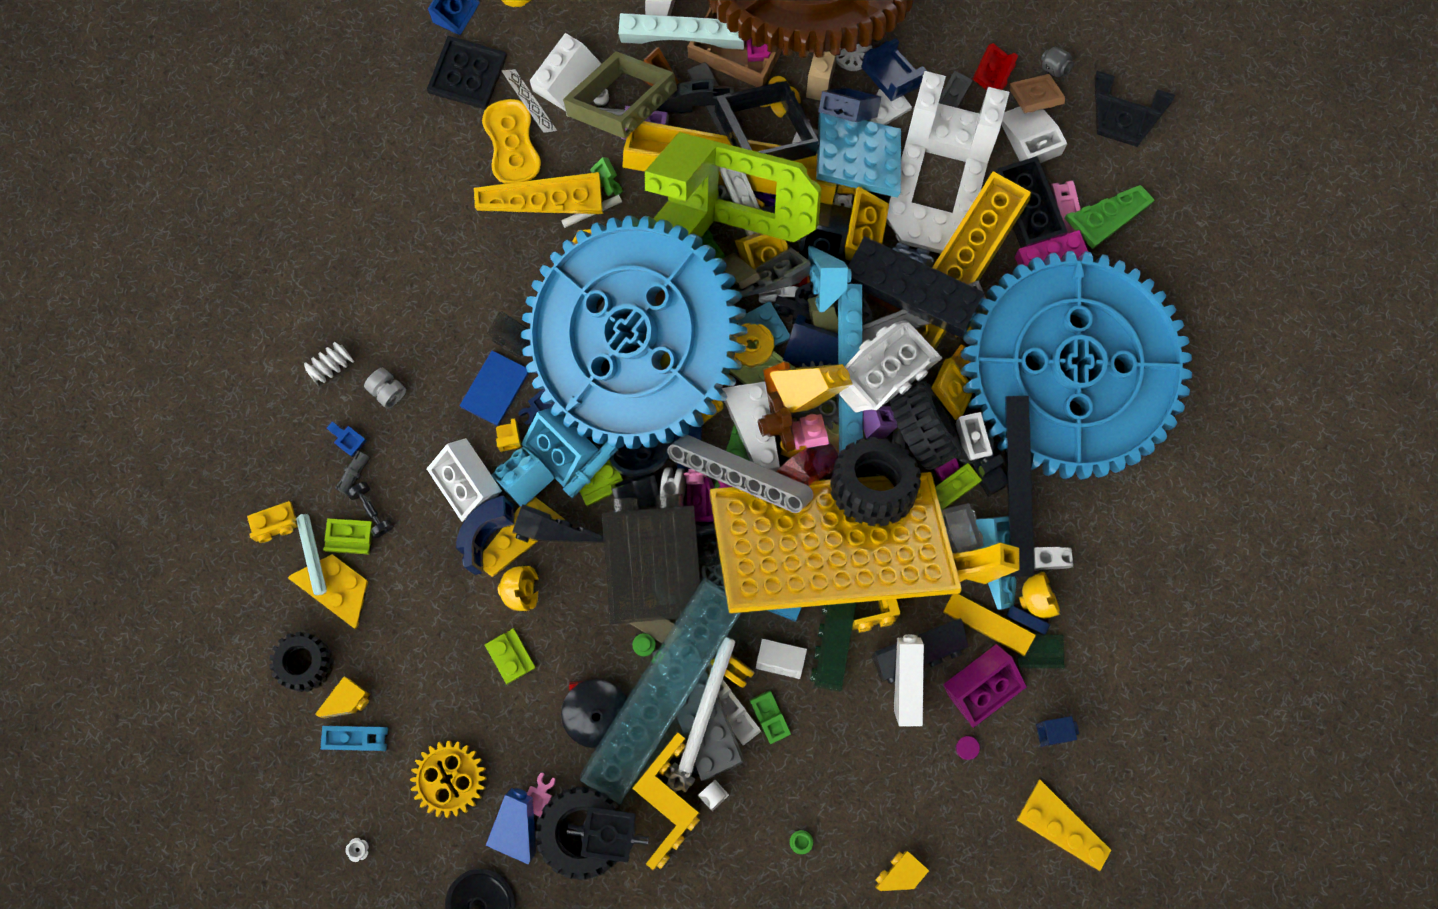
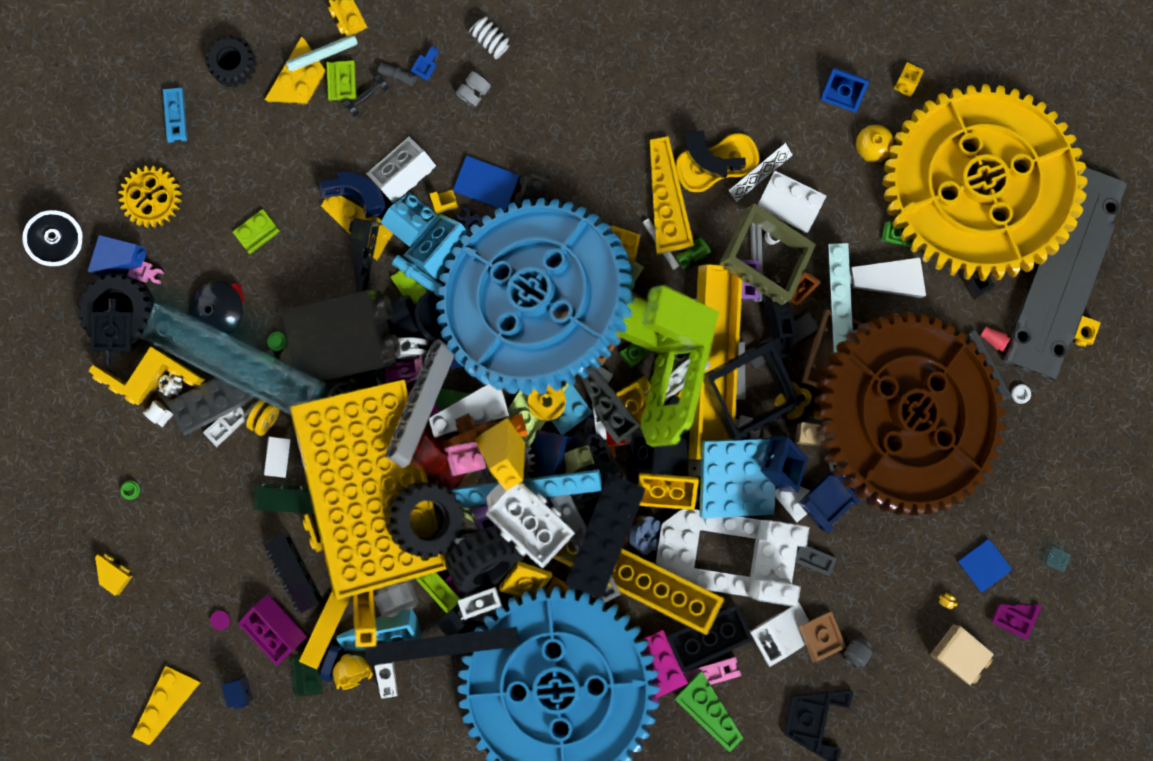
camera: 85 degrees right, 10 degrees up
(344, 700) = (204, 102): yellow slope -> none
(351, 849) = (83, 132): white plate -> none
(467, 72) = (781, 112): black plate -> none
(500, 154) = (705, 161): none -> black arch
(517, 586) = (307, 230): yellow cylinder -> none
(706, 705) = (224, 398): white axle -> none
(740, 270) = (612, 380): dark tan tile -> none
(770, 717) = (228, 453): bright green slope -> none
(828, 277) = (602, 460): medium azure wedge -> none
(909, 681) = (260, 564): white slope -> none
(995, 68) = (843, 596): red bracket -> none

